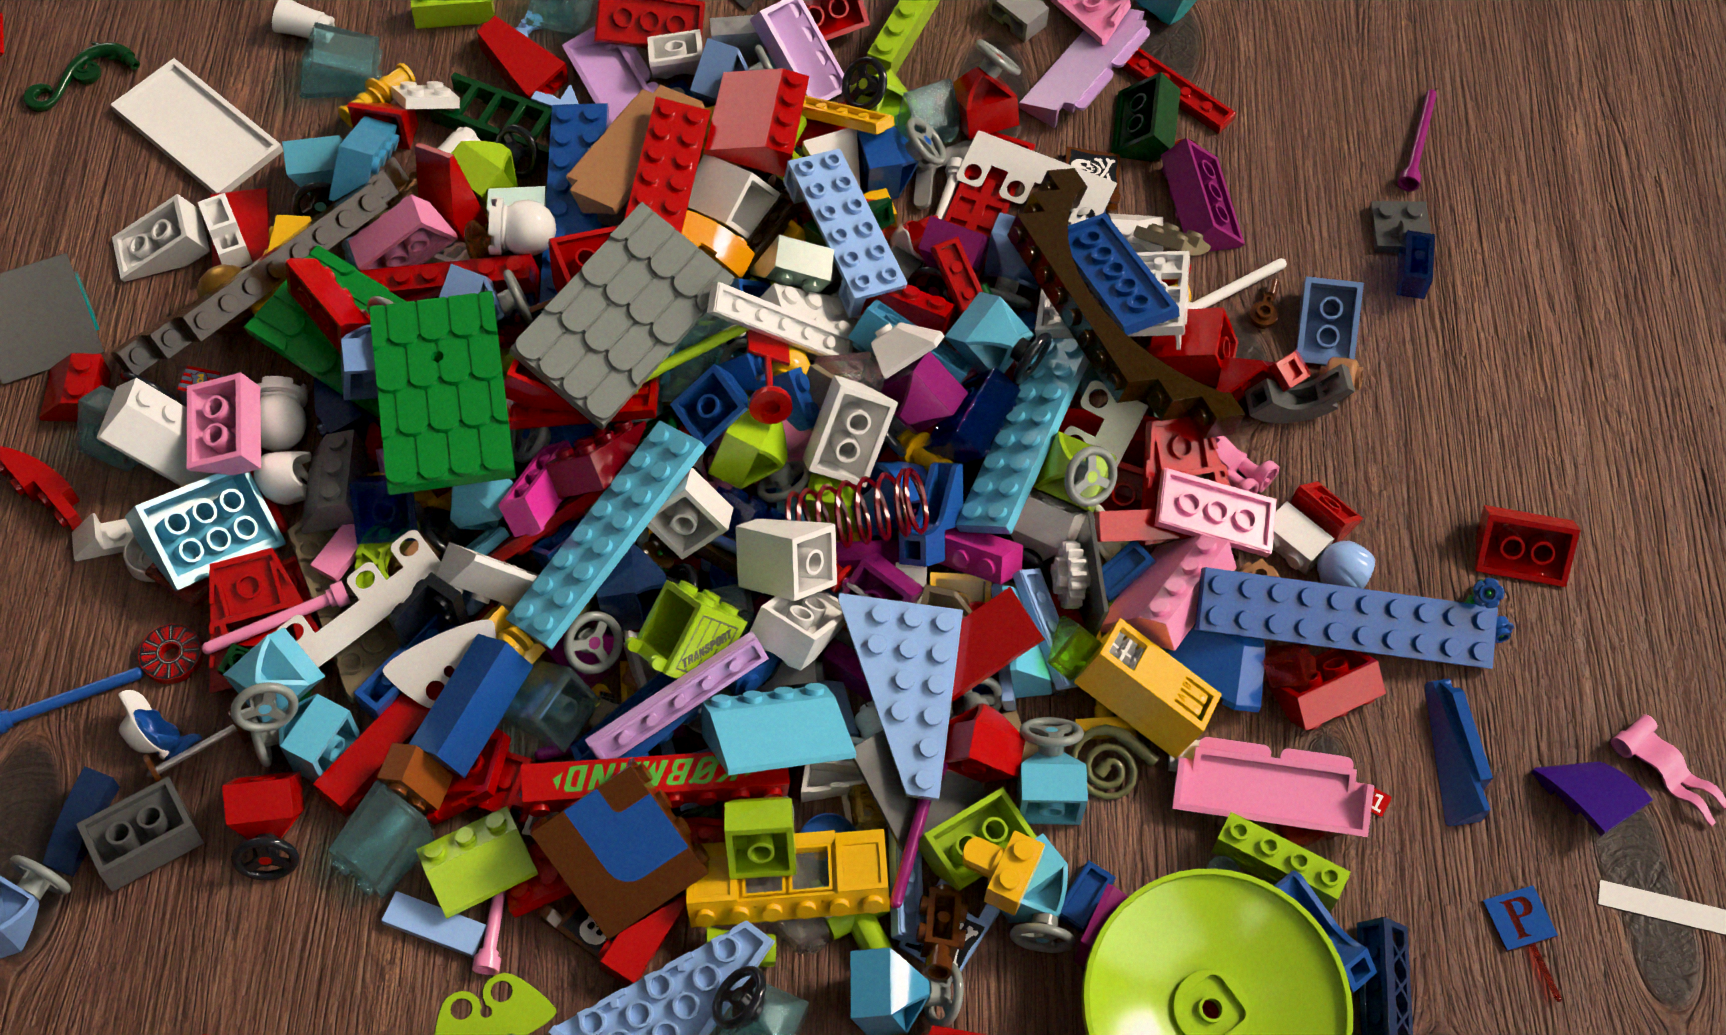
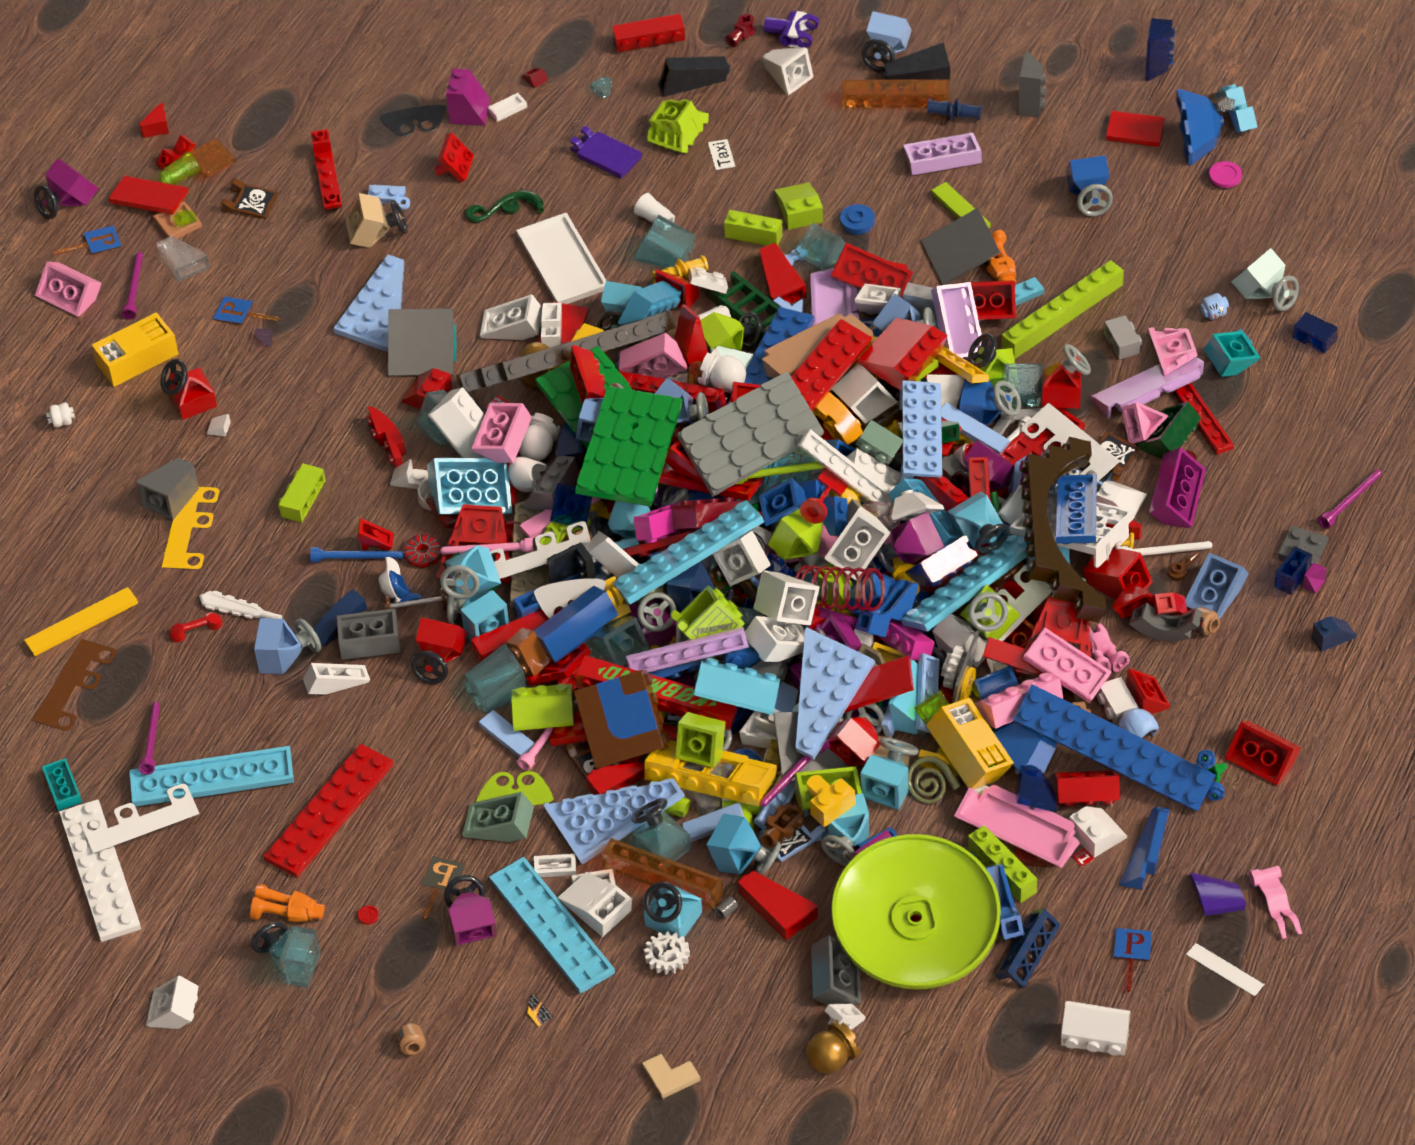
camera: 30 degrees right, 10 degrees down
(78, 658) = (374, 535): none -> red slope
(113, 931) = (334, 677): none -> white slope
(828, 960) = (706, 824): none -> light blue tile
(906, 200) = (975, 430): none -> light blue tile
(1024, 293) = (1012, 508): none -> white slope
(1109, 118) = (1141, 421): none -> bright pink slope
(1172, 238) = (1136, 504): dark tan slope -> none
(1266, 726) = (1034, 789): none -> clear blue slope
(1289, 665) = (1066, 764): clear red brick -> none
(1377, 753) = (1096, 830): none -> white slope
(1442, 264) = (1314, 577): none -> magenta slope
(1508, 338) = (1331, 632): none -> dark blue slope

